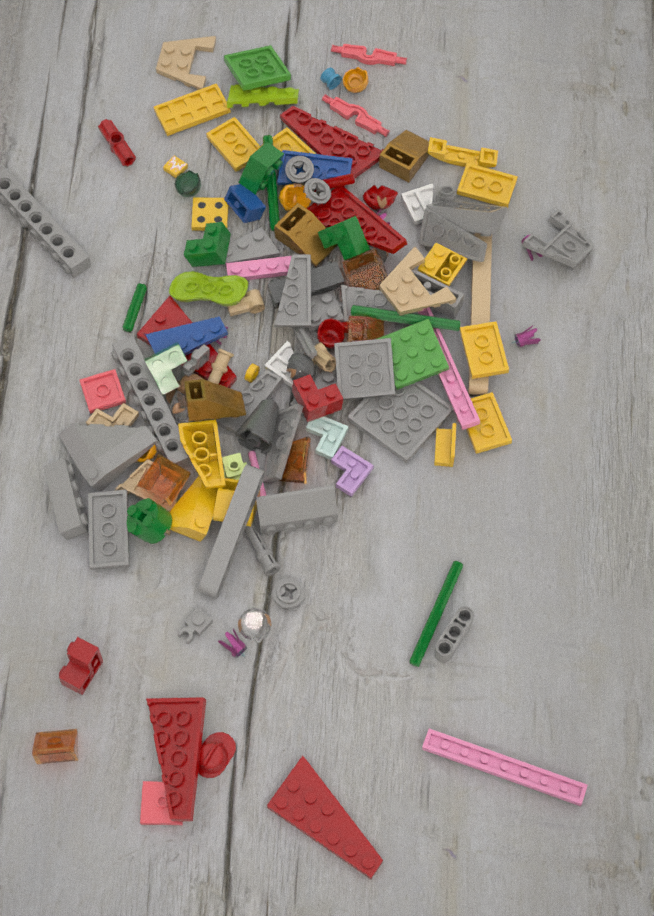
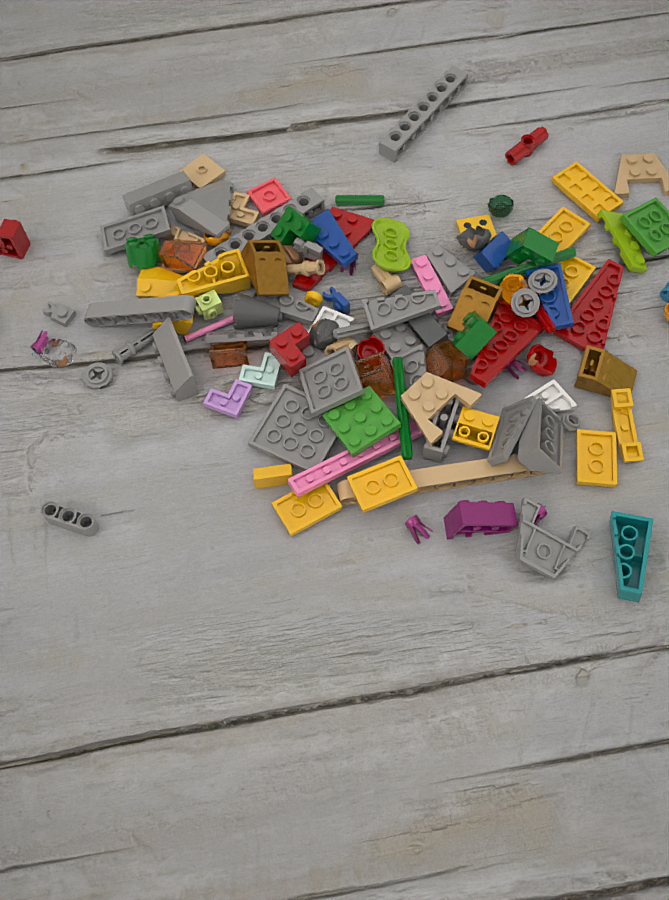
camera: 80 degrees right, 0 degrees up
(40, 452) = (203, 171): none -> tan plate
(175, 166) = (519, 194): yellow tile -> none
(210, 249) = (435, 235): green brick -> none
(227, 211) = (474, 239): none -> dark grey hair
(262, 350) = (339, 301): none -> blue plate
(348, 110) = (635, 331): coral piece -> none
(436, 613) = (93, 501): green axle -> none
(529, 287) = (480, 517): none -> magenta wedge
(584, 184) = (630, 552): none -> teal wedge

